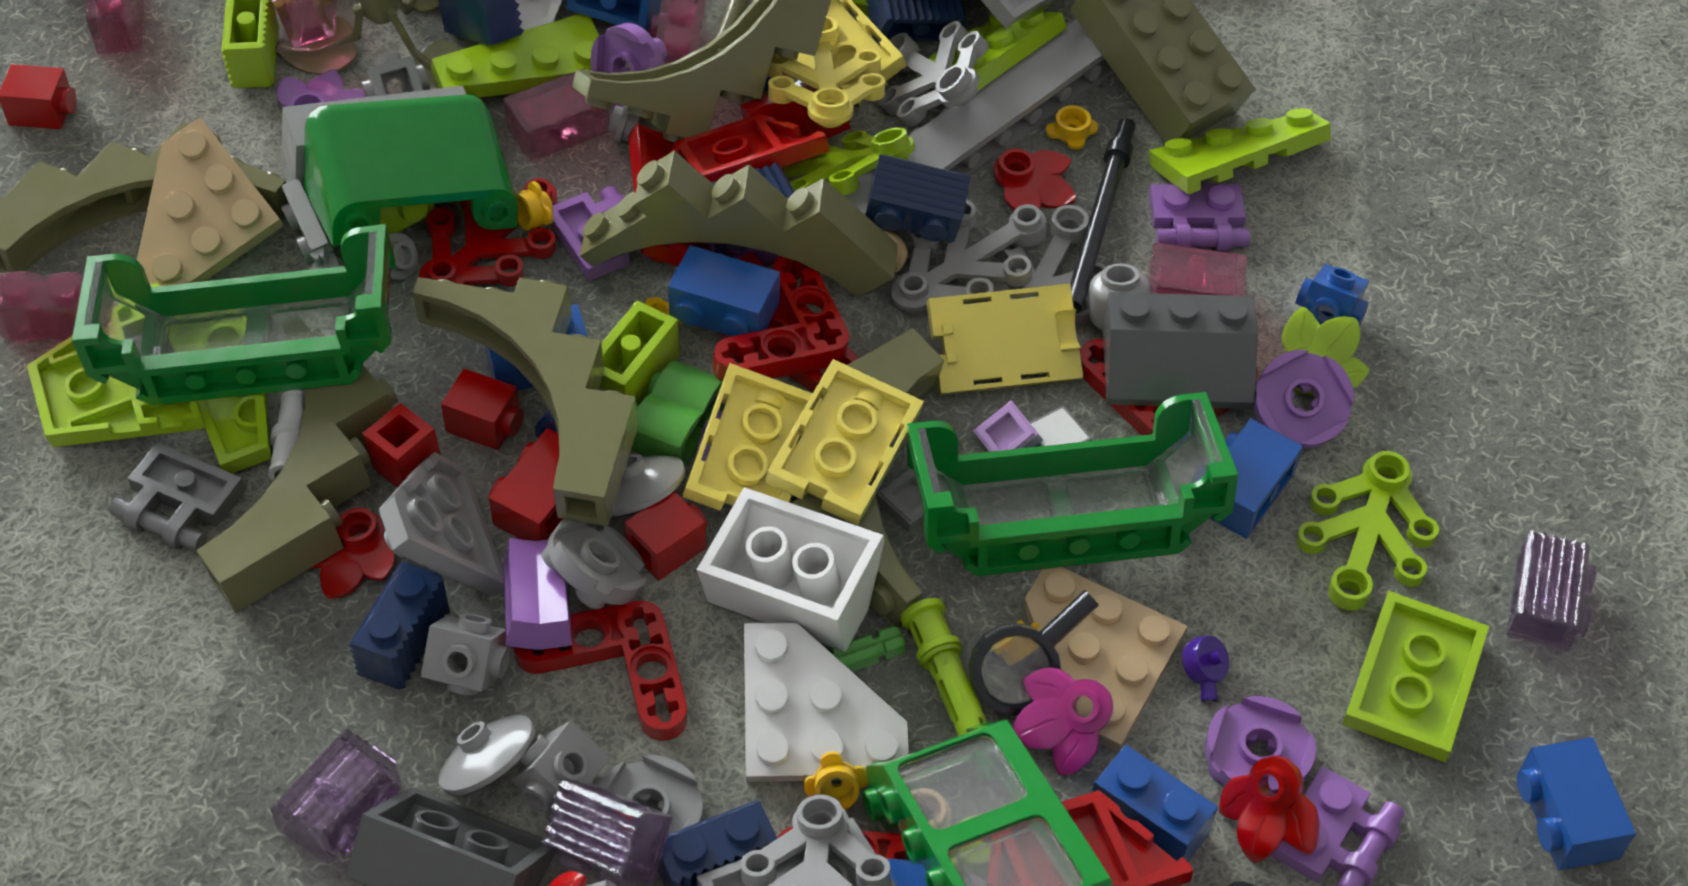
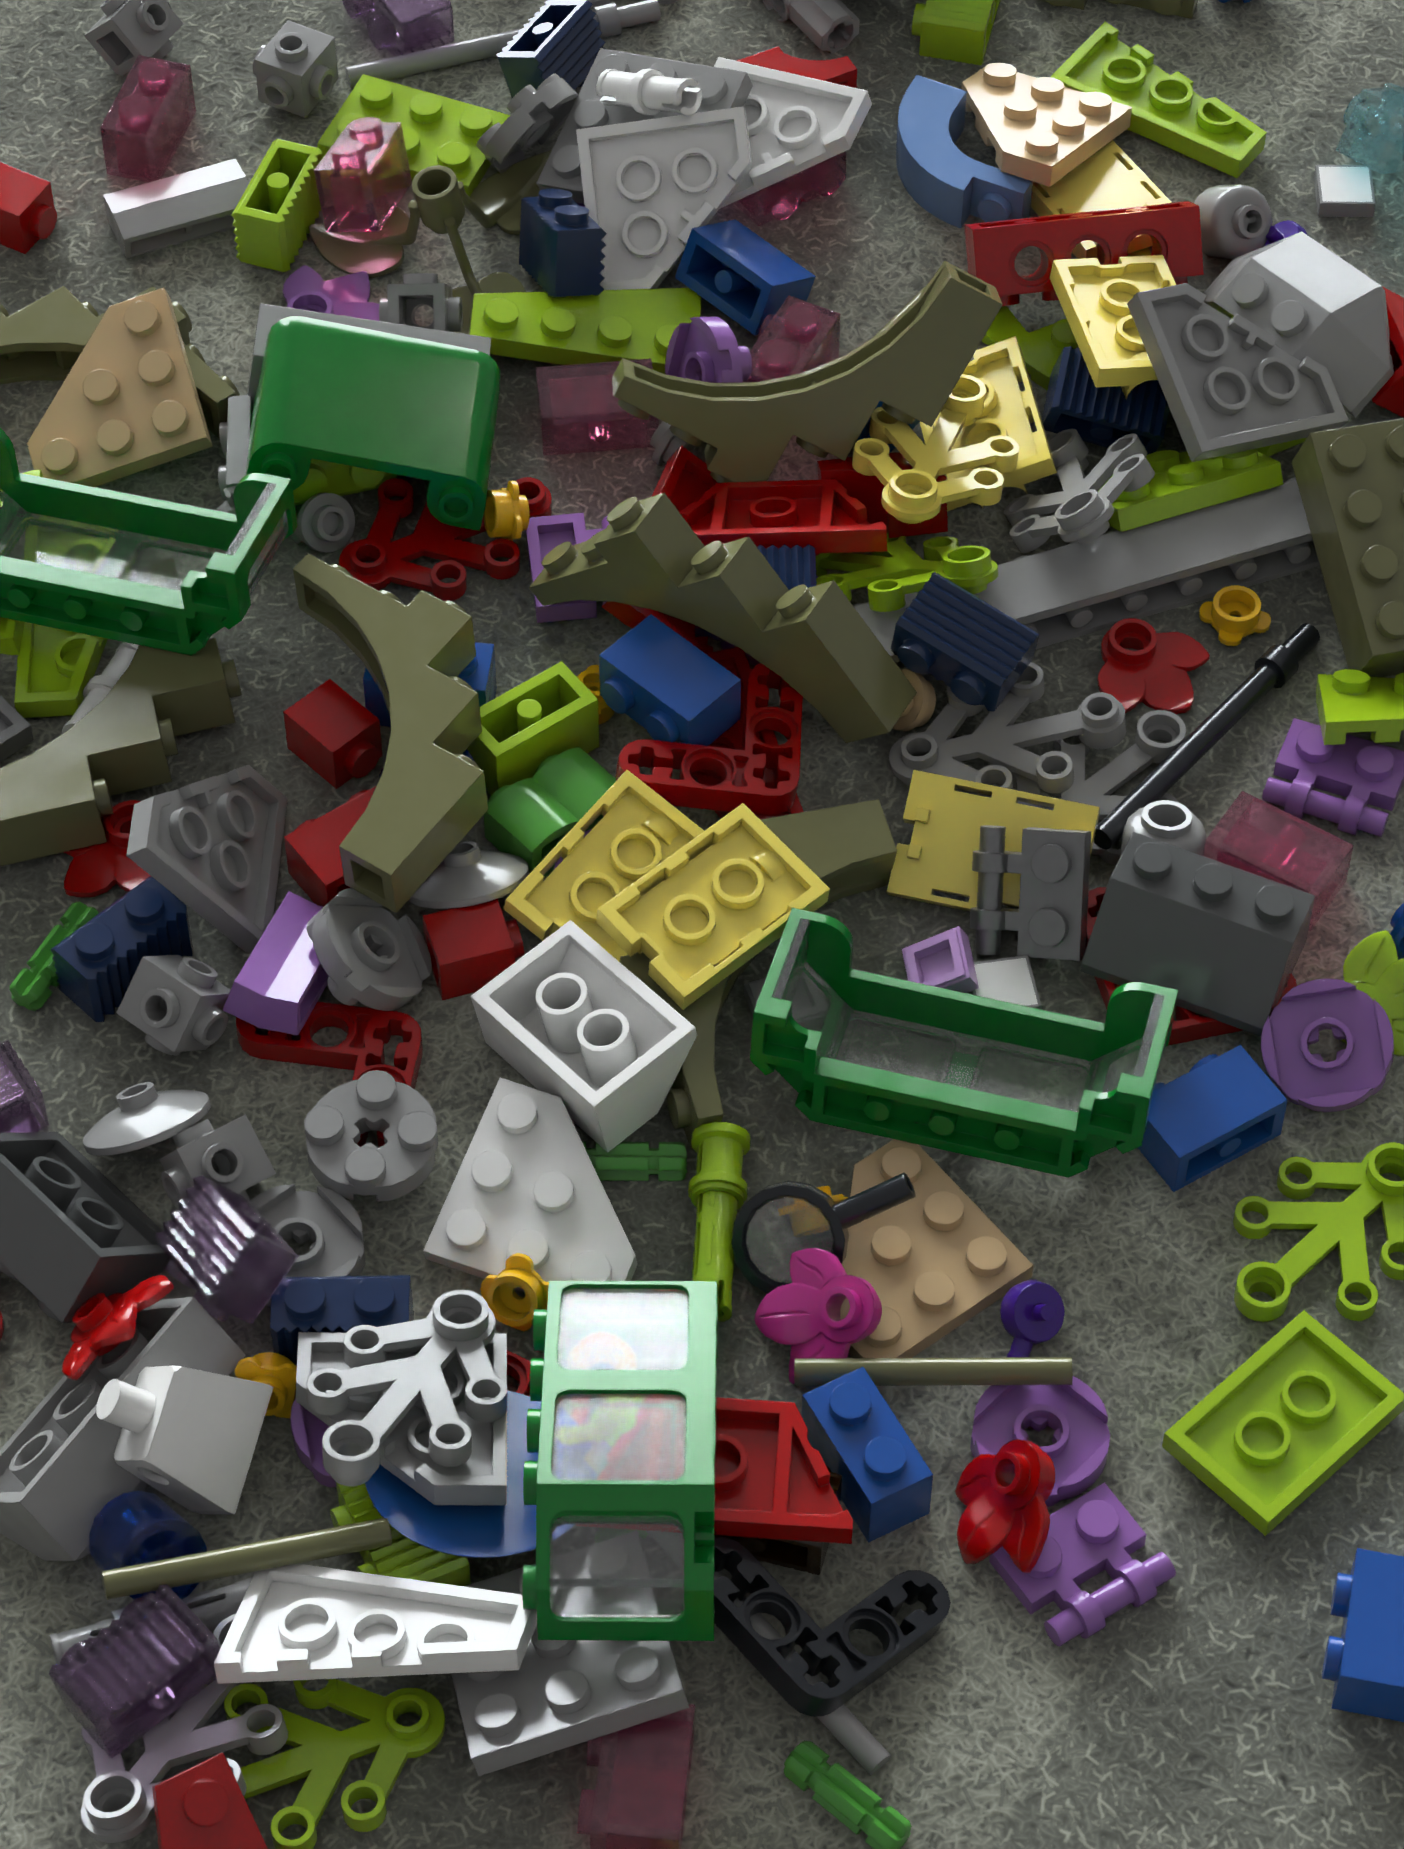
camera: 25 degrees right, 0 degrees up
(168, 62) = (175, 208): none -> light grey piece
(337, 676) = (32, 985): none -> bright green axle
(399, 443) = (216, 739): red brick -> none
(668, 676) = (367, 1105): none -> light grey plate
(1065, 356) = (1052, 892): none -> flat silver plate
(1168, 728) = (939, 1371): none -> olive bar

